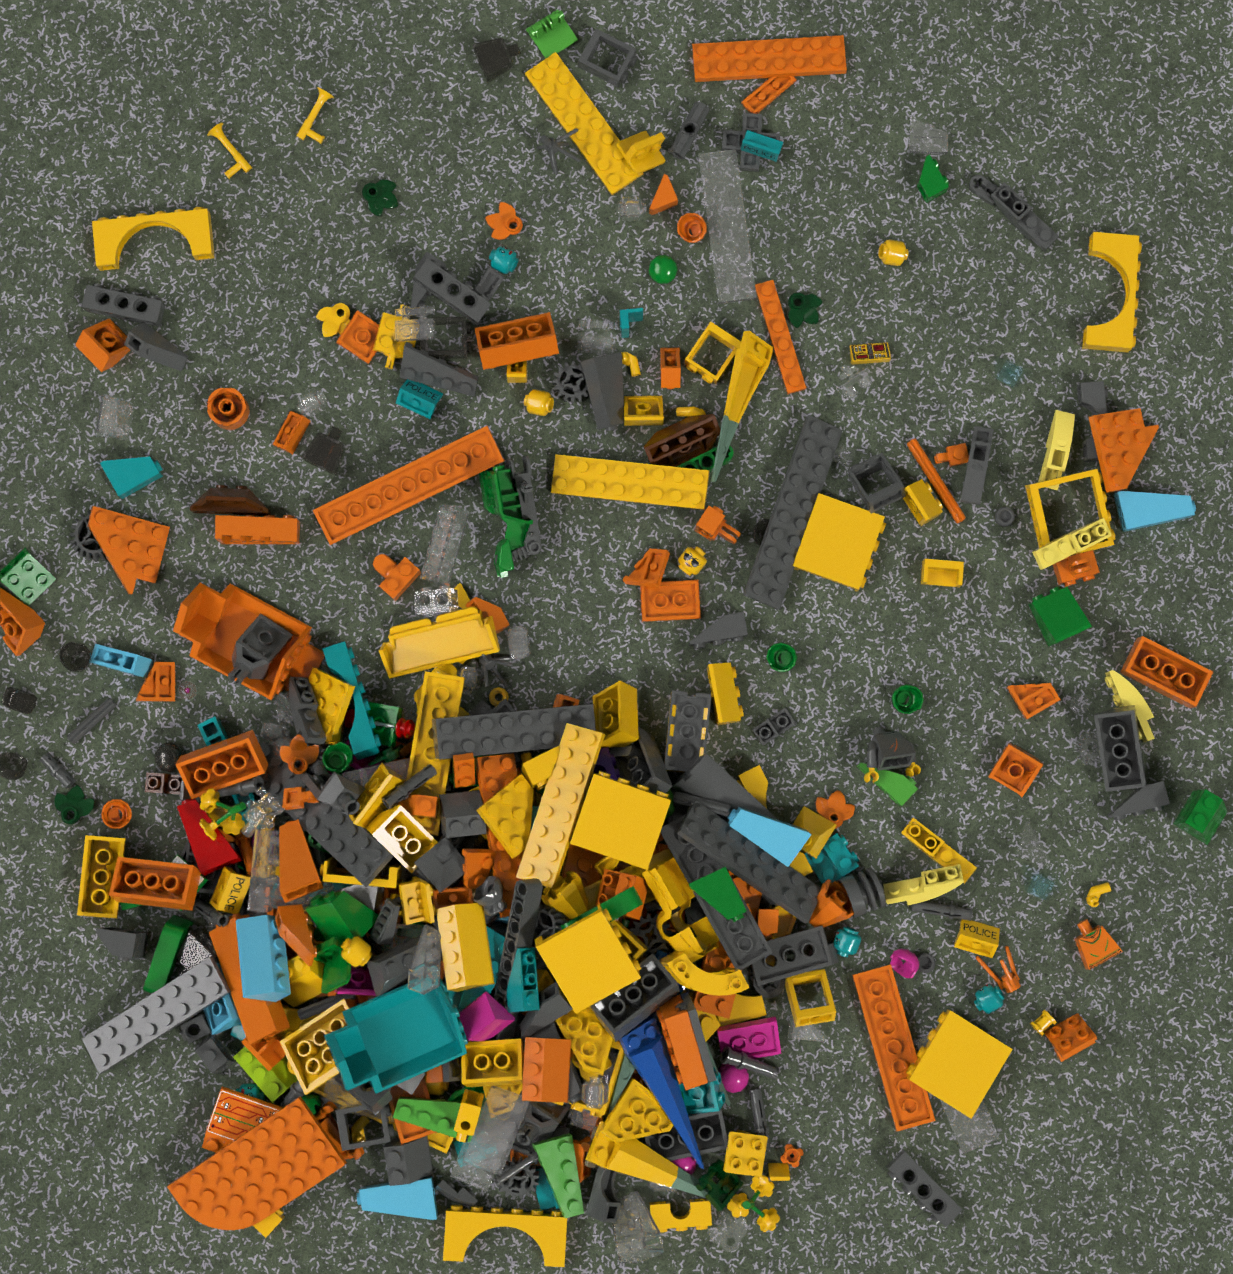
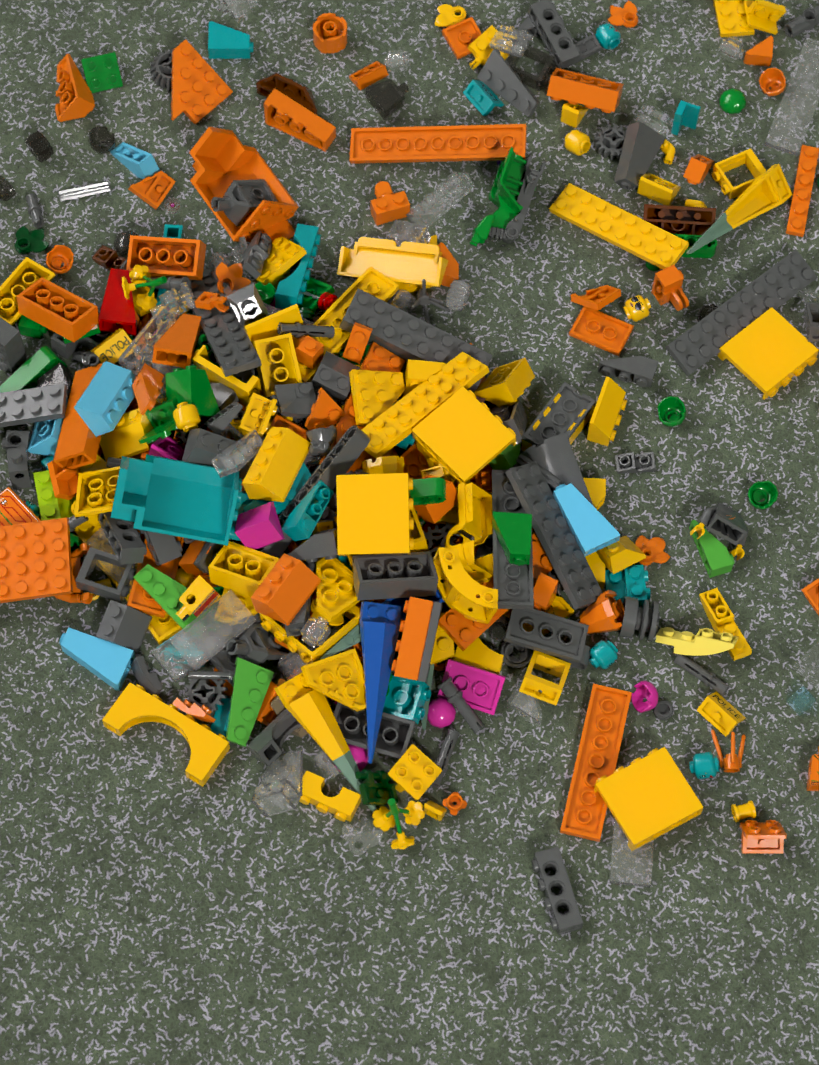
camera: 30 degrees right, 20 degrees down
(526, 1205) = (199, 712): none -> orange slope

